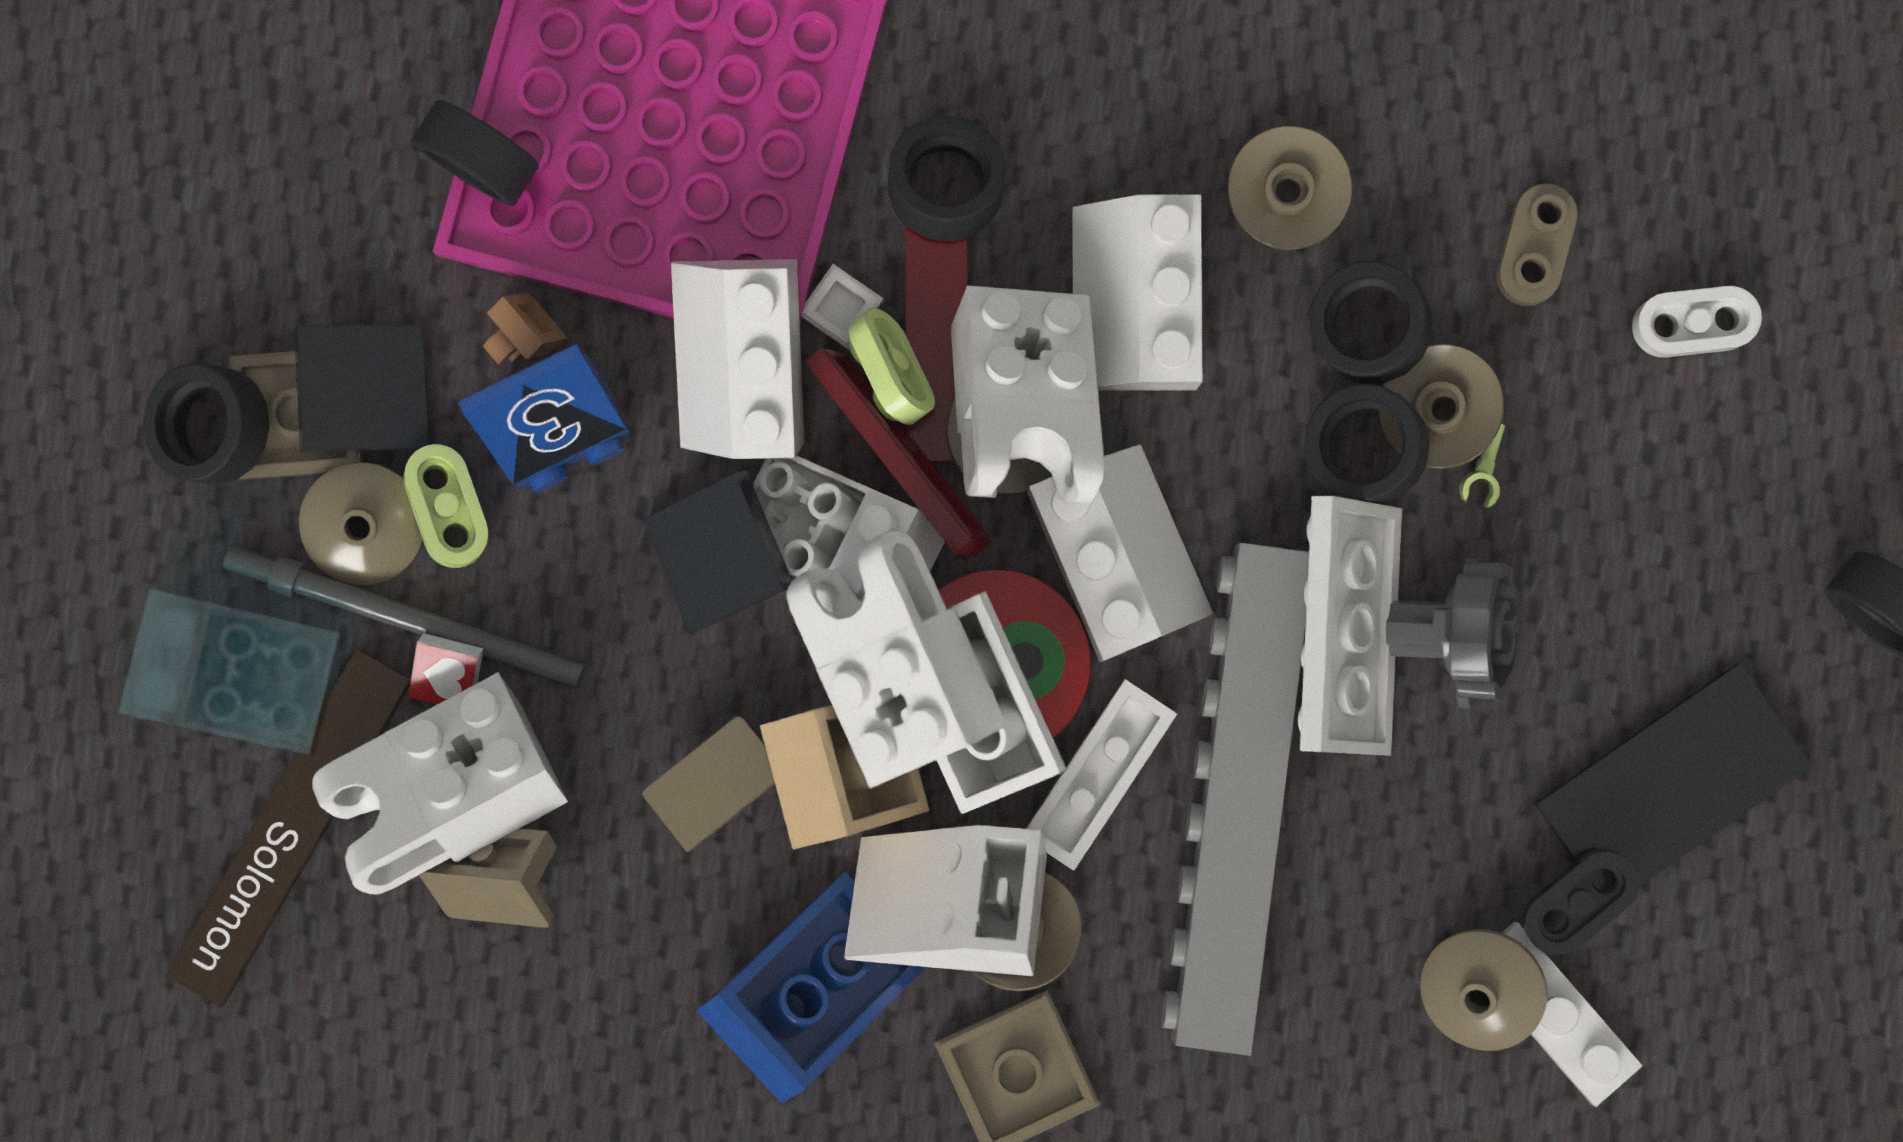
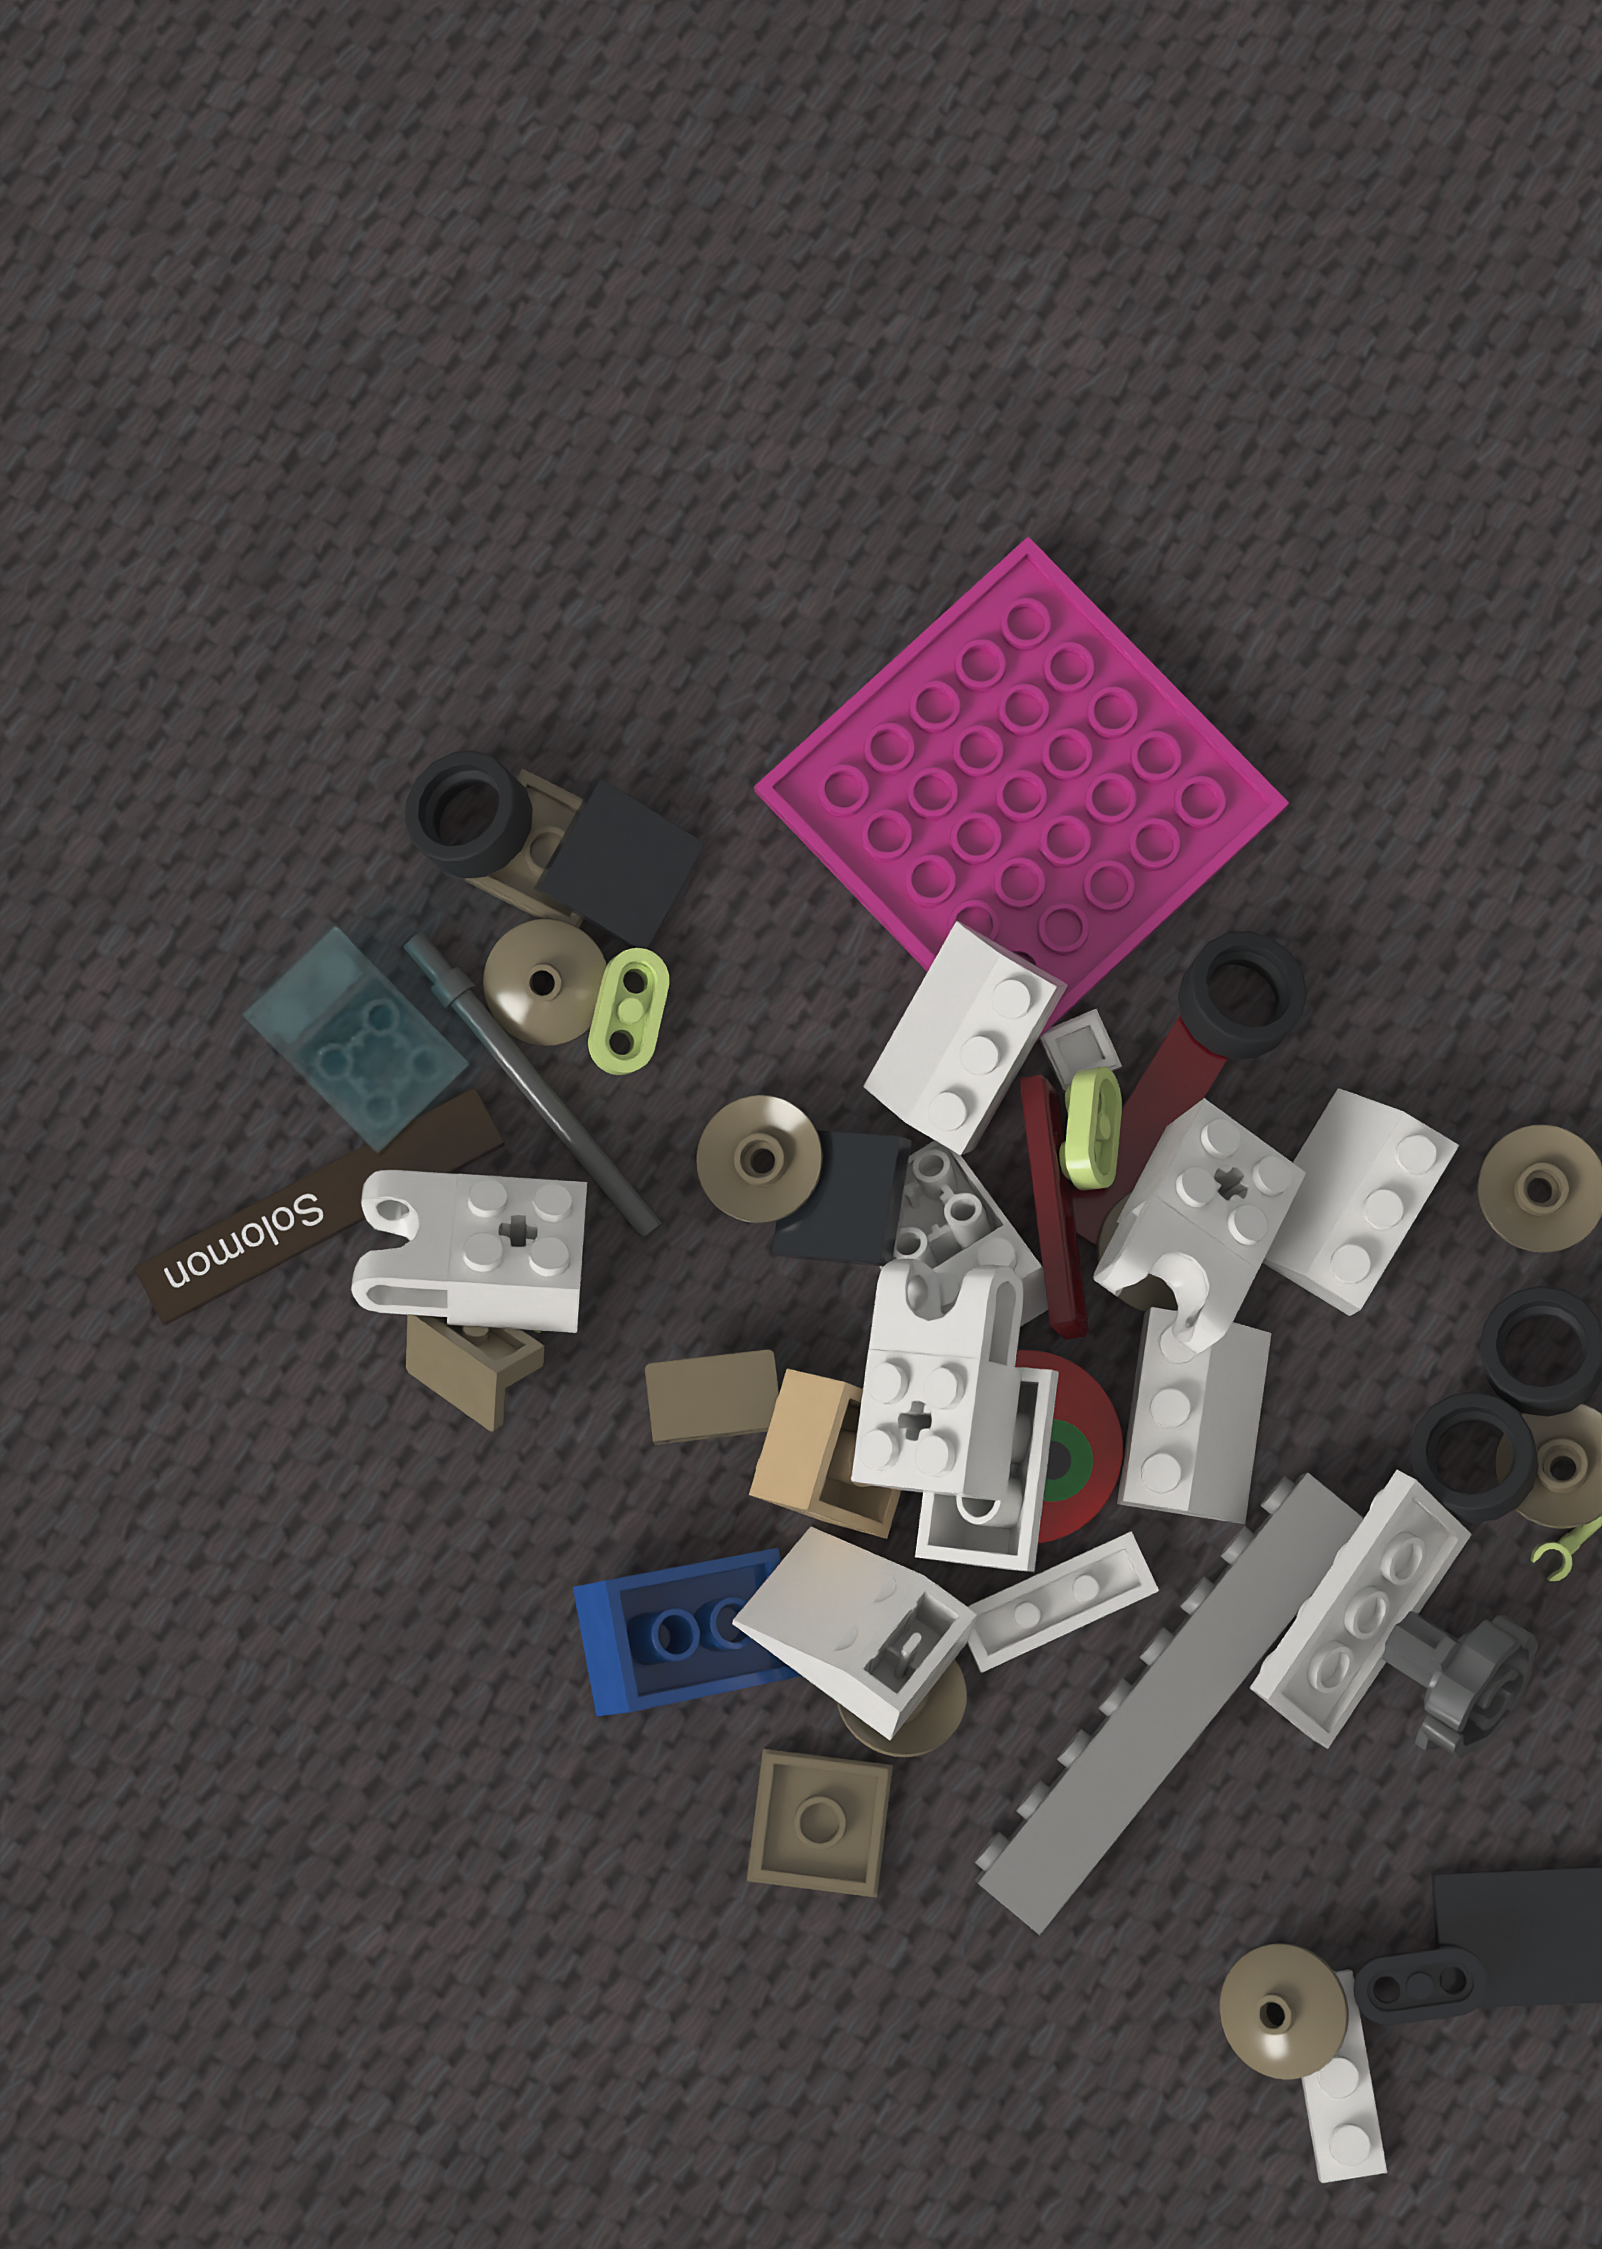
camera: 35 degrees right, 5 degrees down
(443, 668) = (538, 1150): tile -> none
(475, 152) = (847, 724): black tyre -> none
(523, 329) = (790, 901): medium nougat tile -> none
(548, 419) = (767, 991): blue slope -> none
(602, 569) = (734, 1140): none -> dark tan dish

